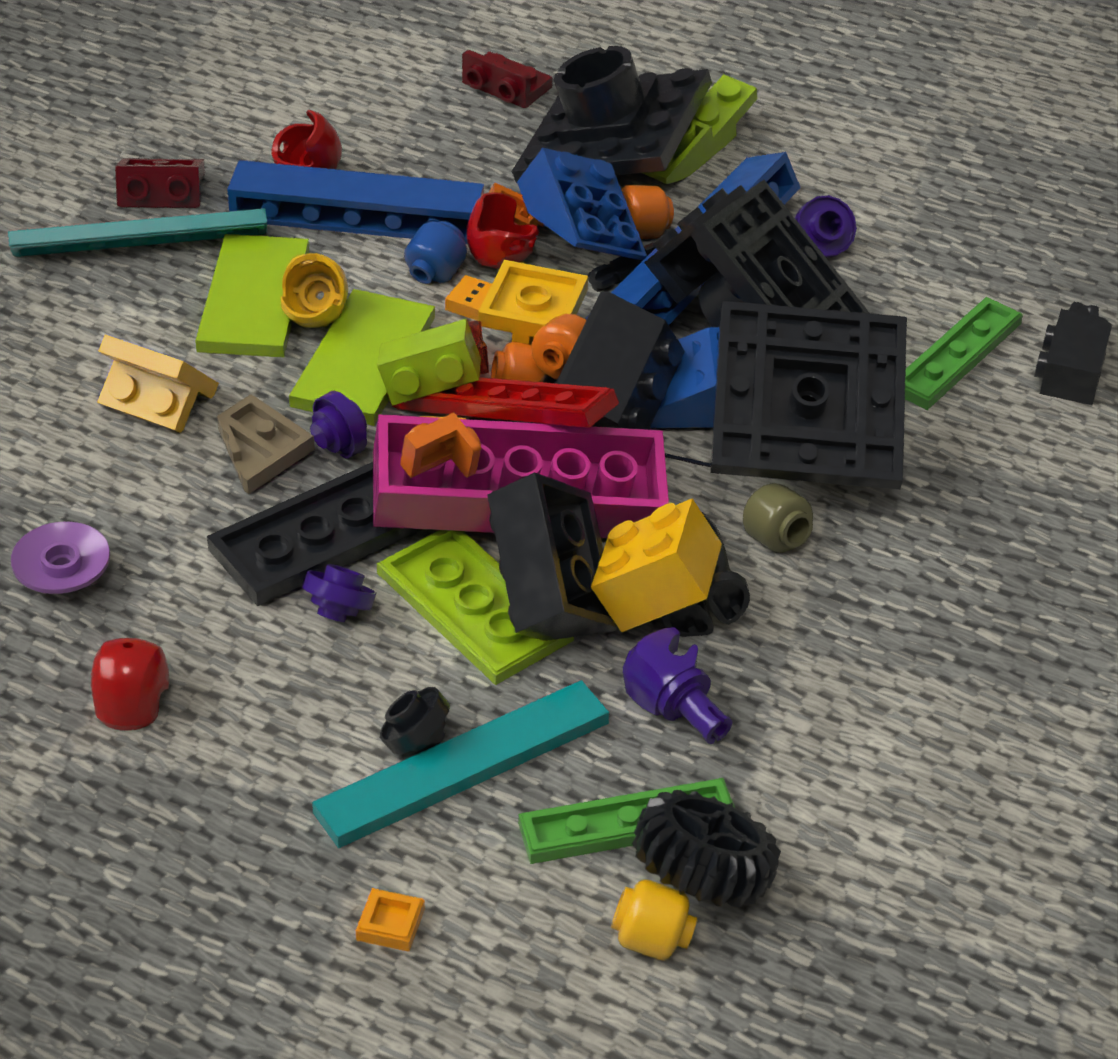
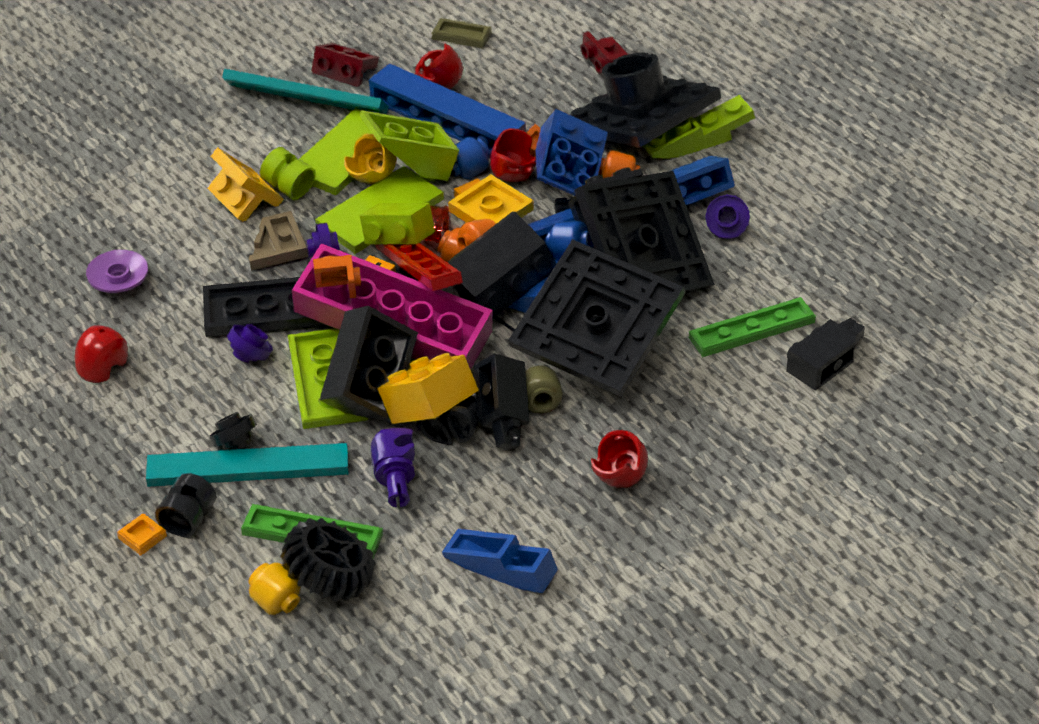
camera: 30 degrees right, 0 degrees up
(210, 345) = (289, 174): none -> lime wheel
(286, 100) = (461, 33): none -> olive tile
(370, 252) = (415, 142): none -> lime slope
(435, 851) = (185, 505): none -> black wheel
(681, 308) = (562, 234): none -> blue head
(756, 544) = (502, 398): none -> black hinge
(912, 757) = (502, 559): none -> blue slope
(961, 554) = (615, 456): none -> red helmet

